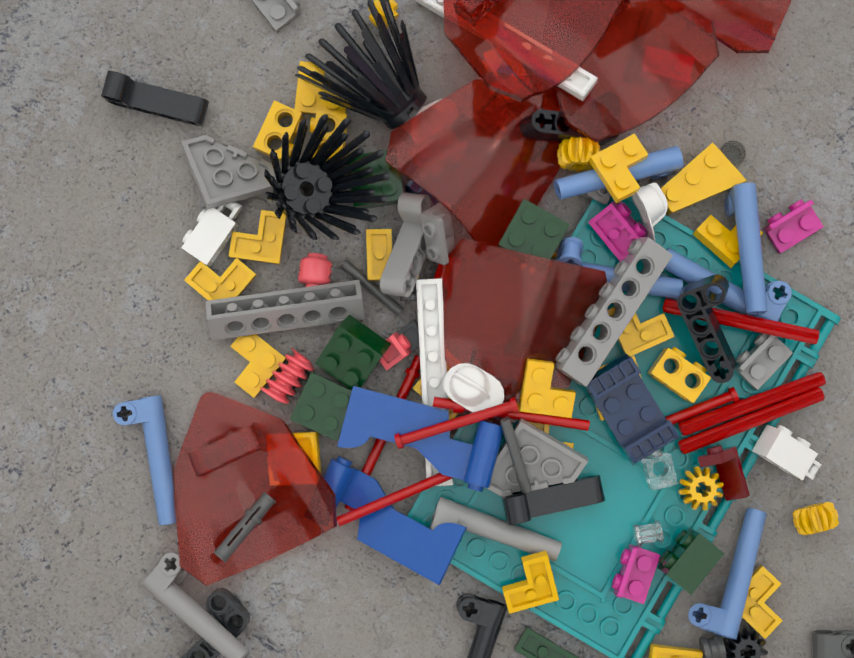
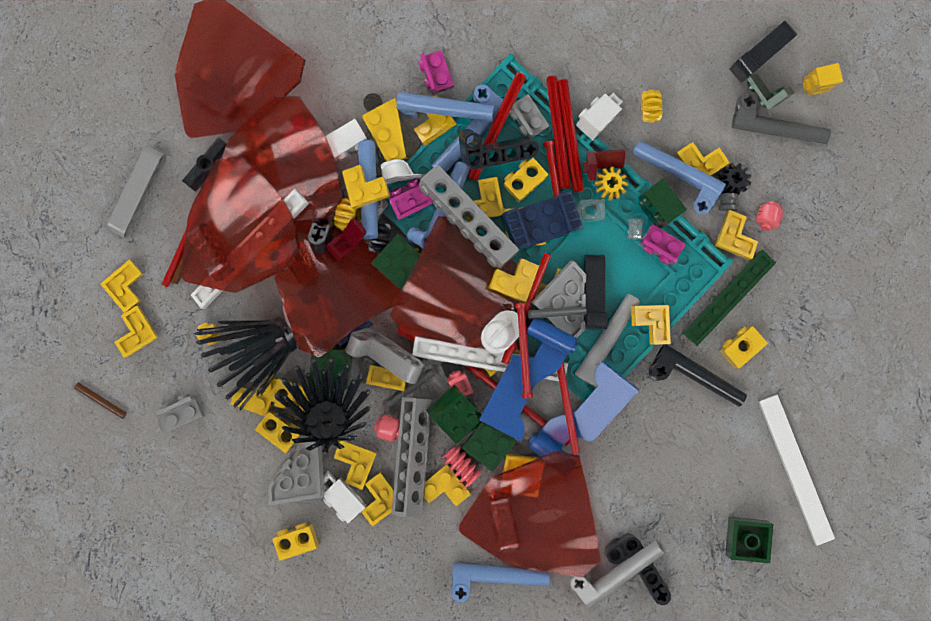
camera: 70 degrees left, 0 degrees up
(138, 189) = (297, 546): none -> yellow brick
(154, 100) = (233, 519): black beam -> none
(264, 503) = (551, 505): dark grey pin -> none
(438, 233) = (381, 331): light grey bracket -> none
(545, 162) = (348, 240): none -> dark red bracket
(549, 202) = (378, 244): none -> black gear
(675, 129) = (345, 140): none -> white brick

